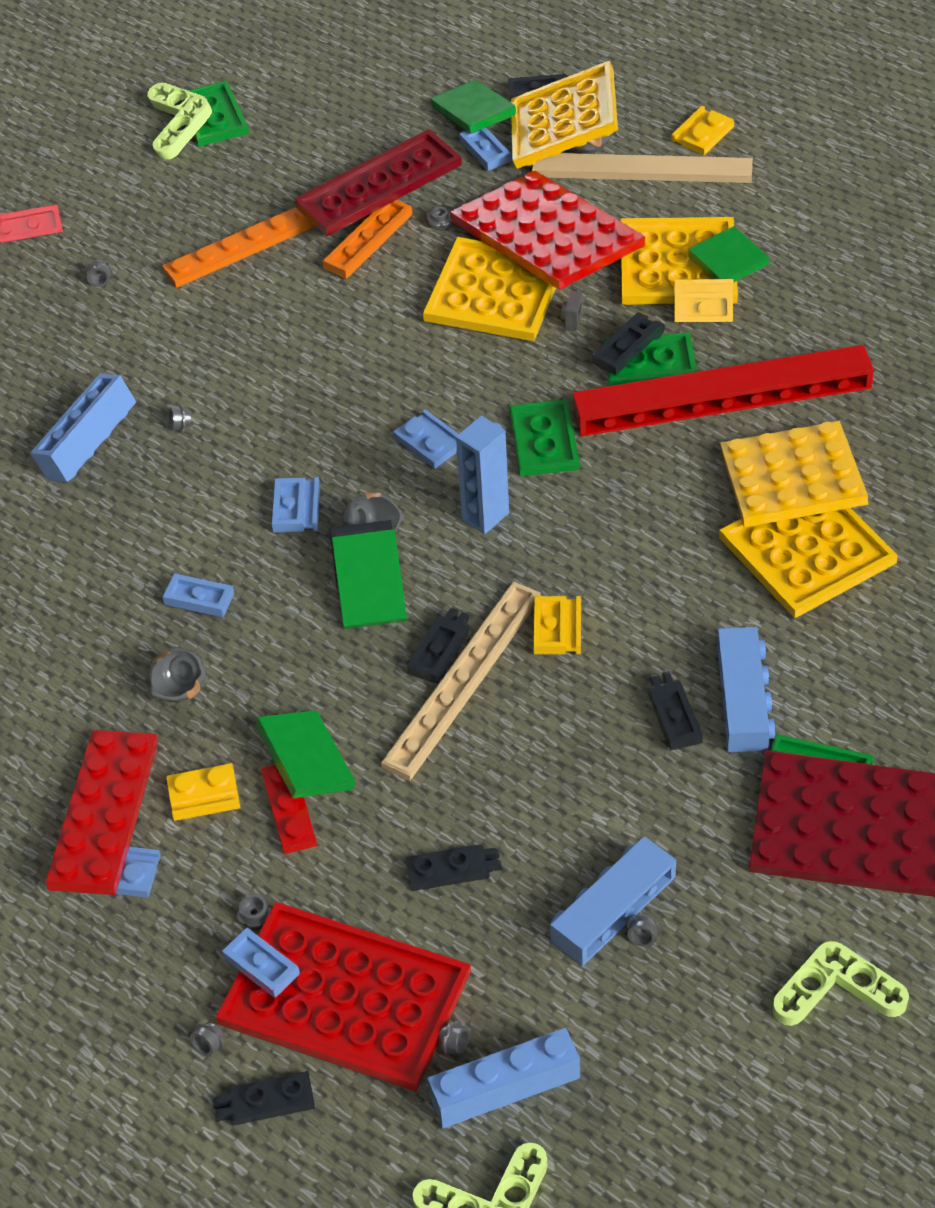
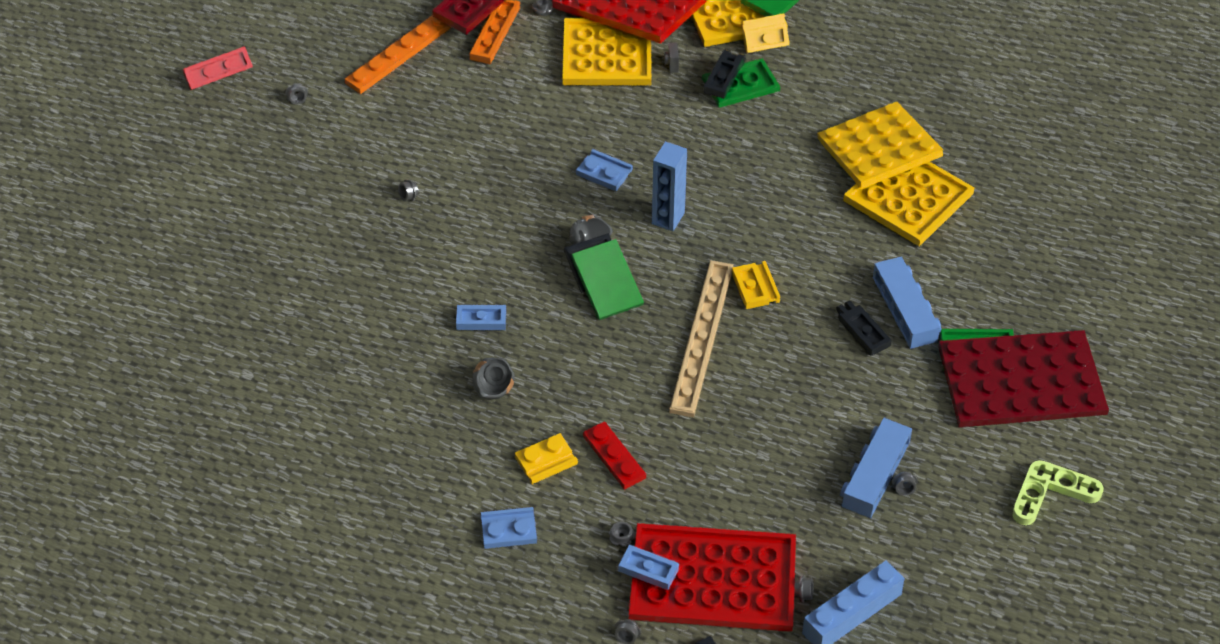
camera: 20 degrees left, 0 degrees up
(83, 427) = (340, 211): medium blue brick -> none
(102, 813) = (480, 489): red plate -> none
(295, 504) = (526, 237): medium blue plate -> none
(305, 754) = (612, 414): green tile -> none
(439, 646) = (676, 317): black hinge -> none
(451, 866) = (750, 471): black hinge -> none
(544, 437) = (700, 157): green tile -> none
(722, 390) = (803, 95): red brick -> none

